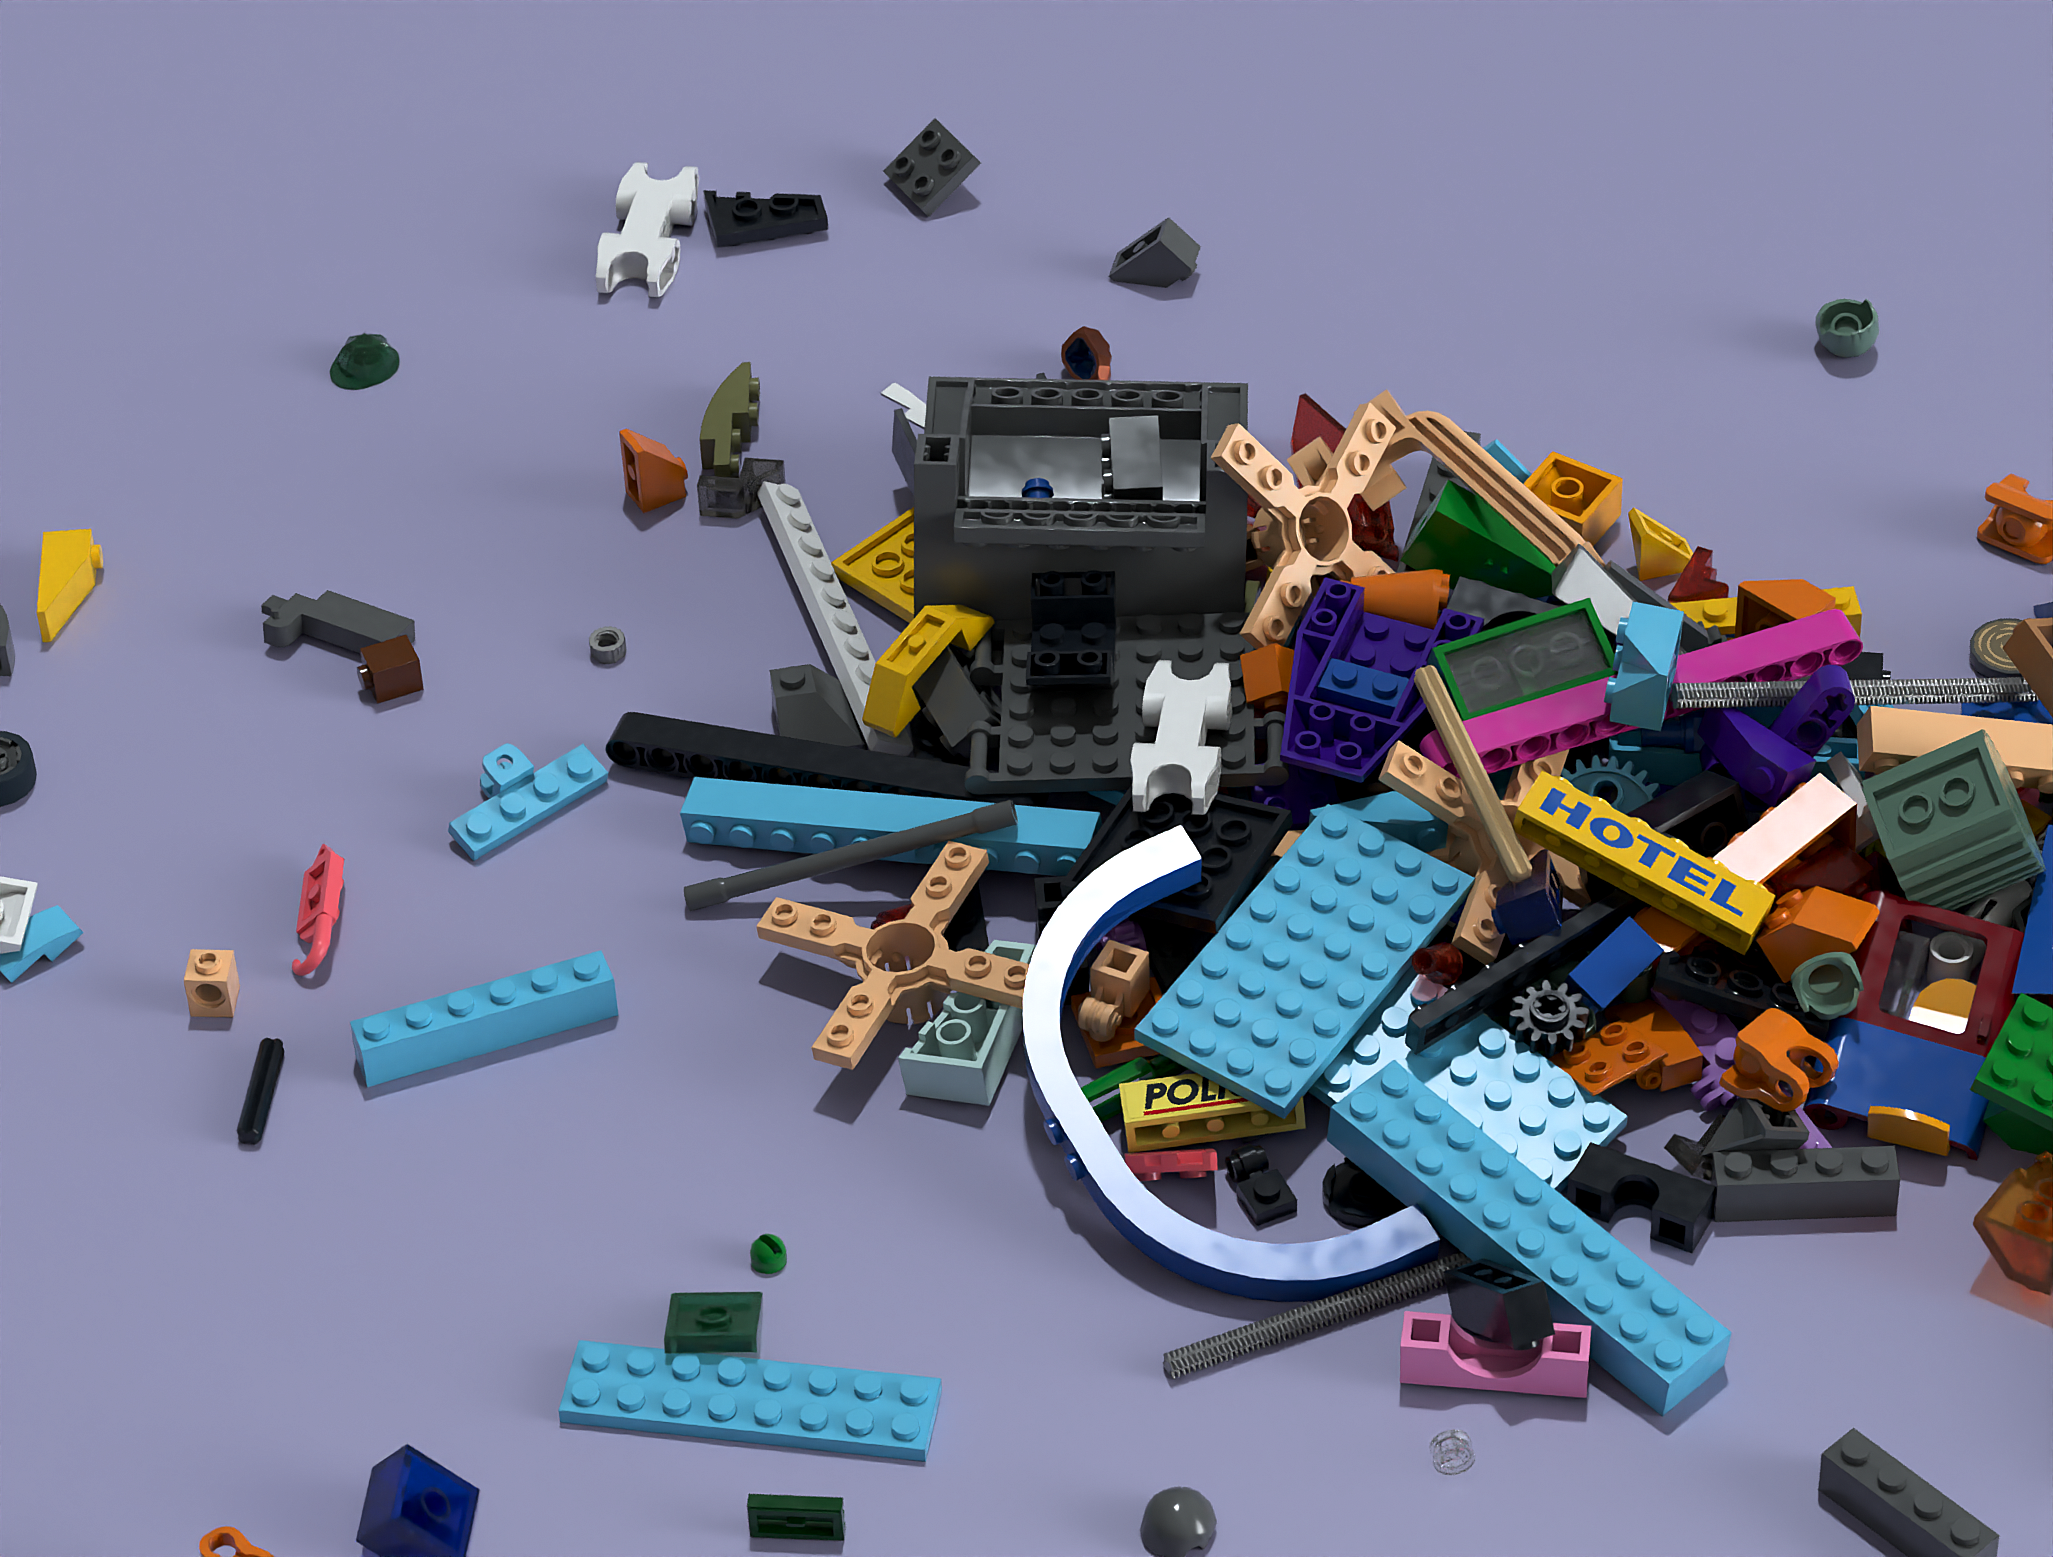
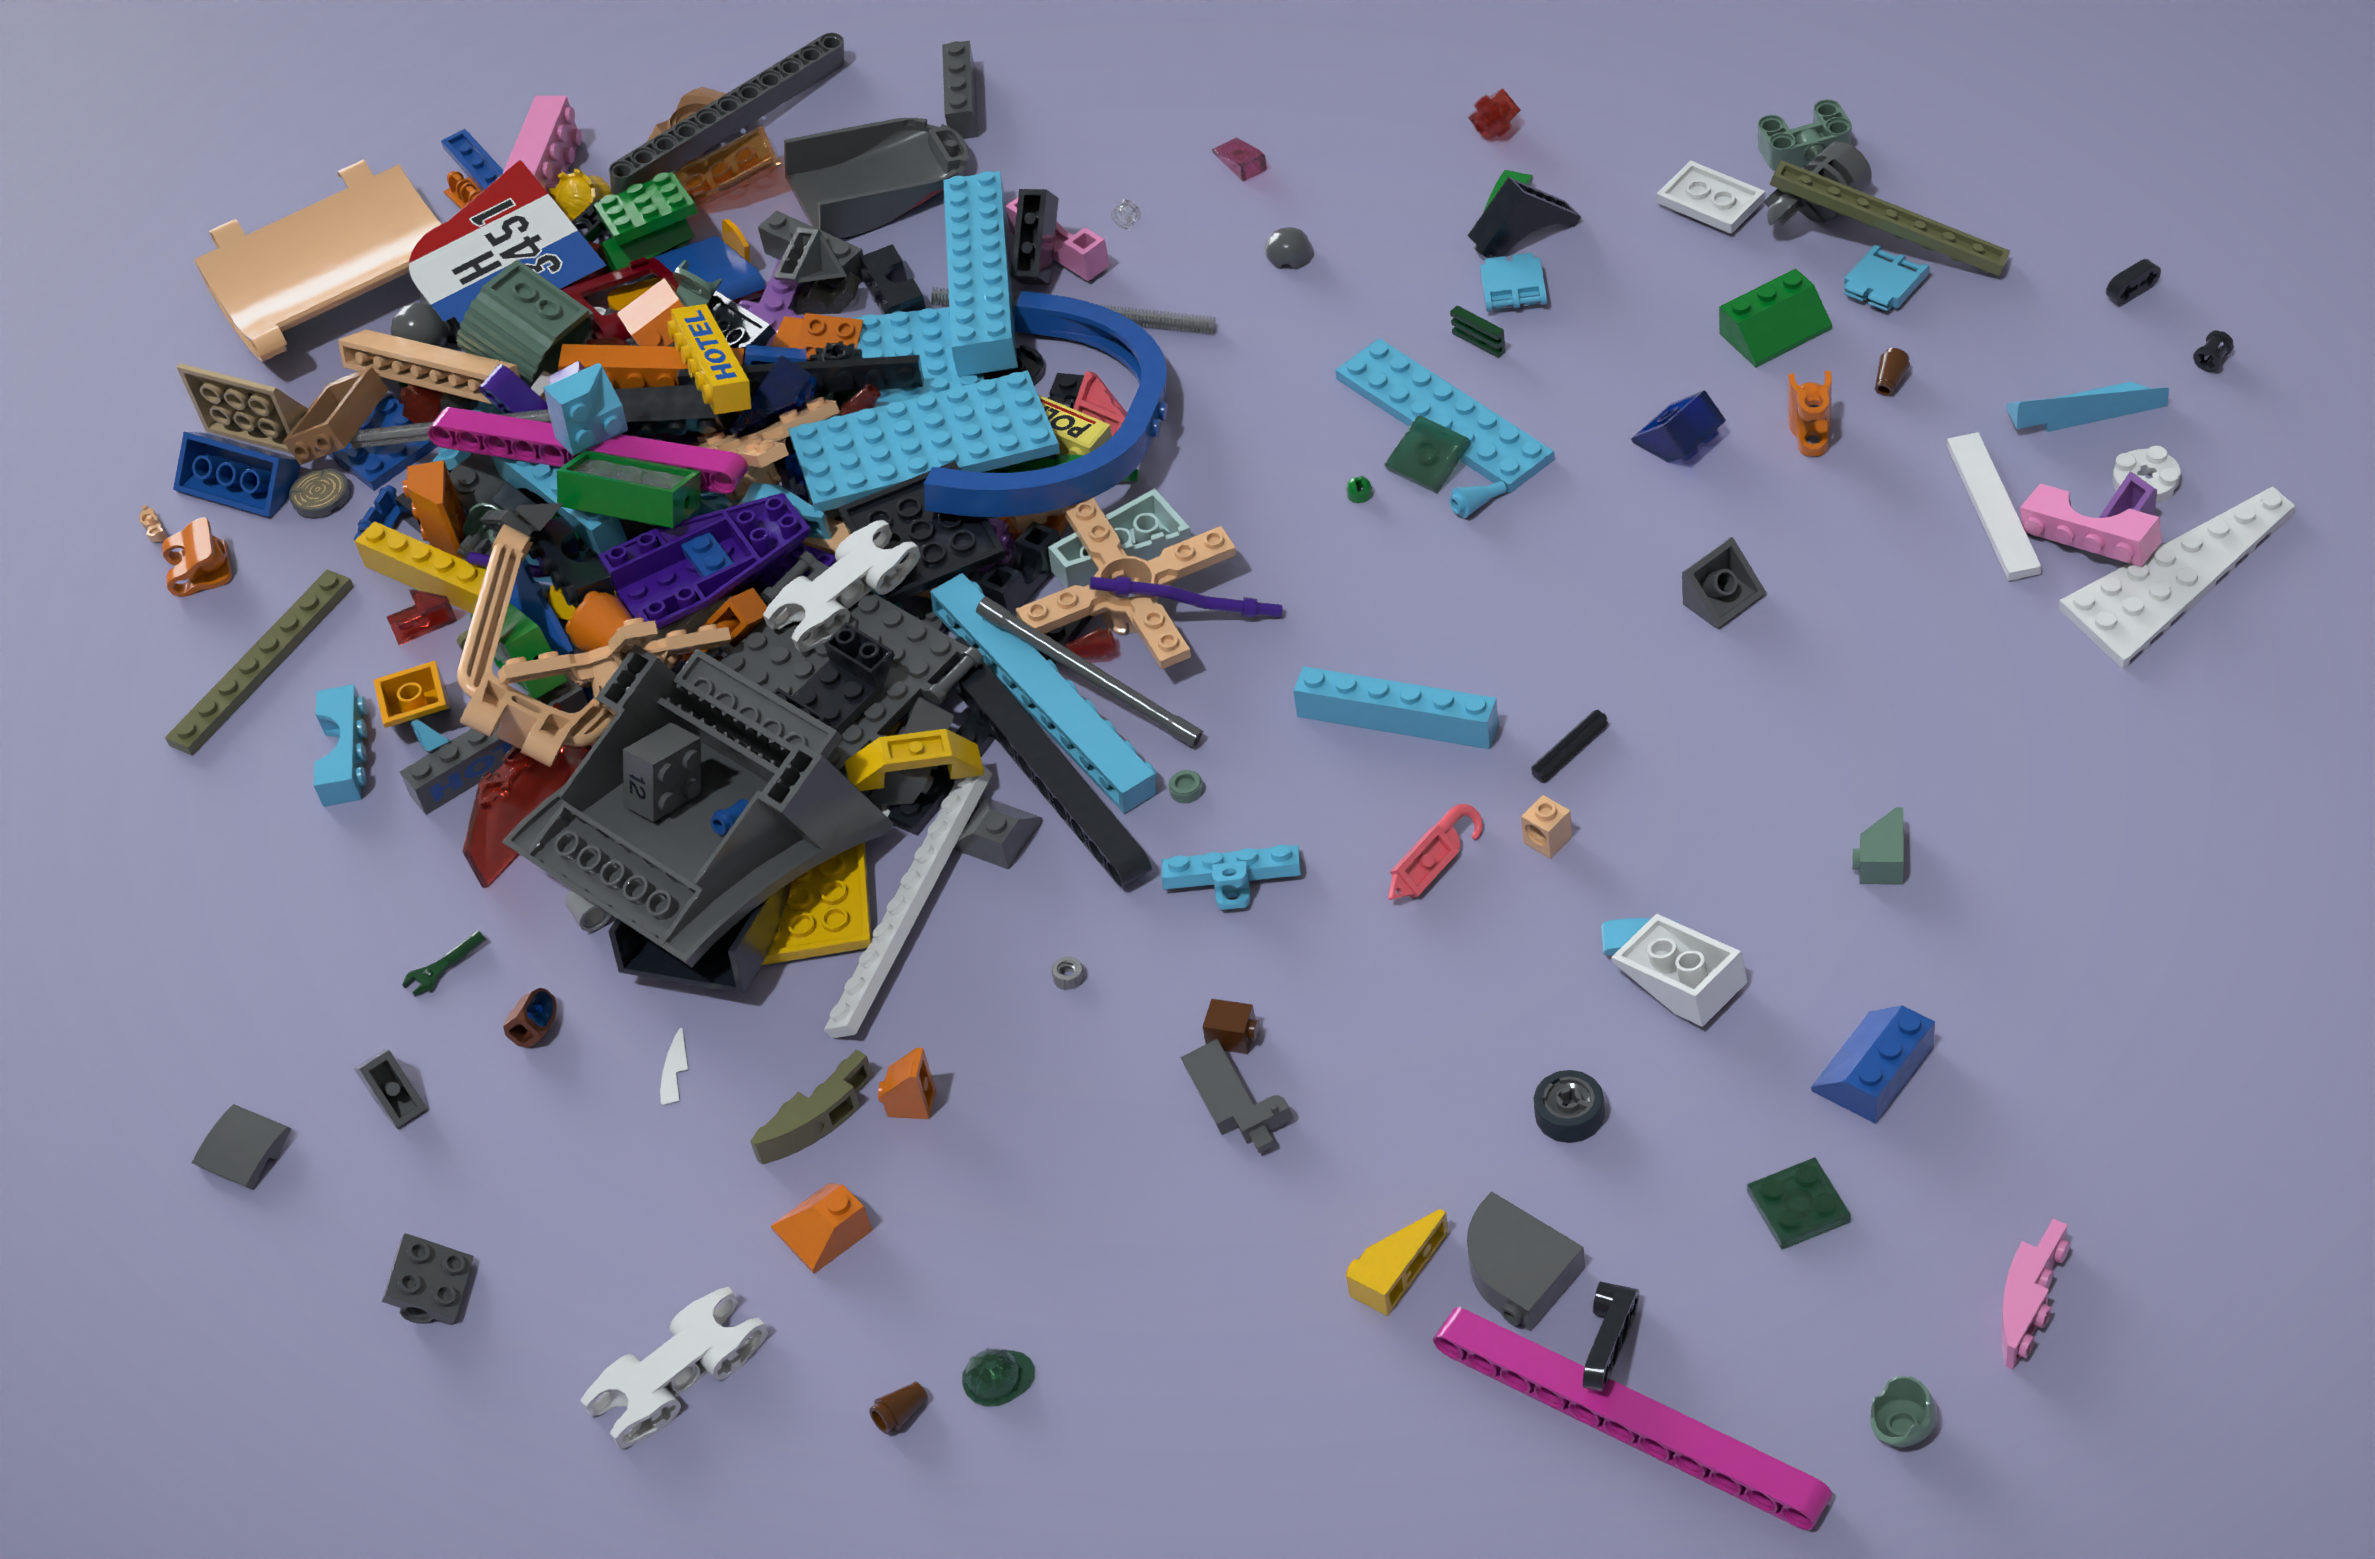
camera: 135 degrees left, 5 degrees up
(212, 1338) = (1720, 584): none -> dark grey slope
(423, 295) = (895, 1408): none -> reddish brown cone
(613, 1295) = (1468, 499): none -> medium azure cone
(630, 372) = (823, 1226): none -> orange slope
(657, 855) = (1185, 786): none -> sand green tile
(738, 496) = (843, 1040): clear smoke slope -> none
(757, 219) = (585, 1325): black wing -> none
(763, 1043) = (1124, 586): none -> dark purple bar
(1236, 170) = (241, 1145): none -> dark grey slope
(1245, 357) = (430, 974): none -> dark green piece
(1473, 774) = (735, 435): tan axle -> none
(1647, 469) = (340, 773): none -> medium azure arch
(1656, 547) = (404, 652): yellow slope -> none
(1773, 1051) = (770, 274): orange piece -> none
(1816, 485) = (259, 662): none -> olive plate
(1847, 327) = (96, 743): sand green hair -> none
(1853, 1325) = (871, 172): none -> dark grey windscreen
(1896, 652) = (384, 512): none -> blue hinge

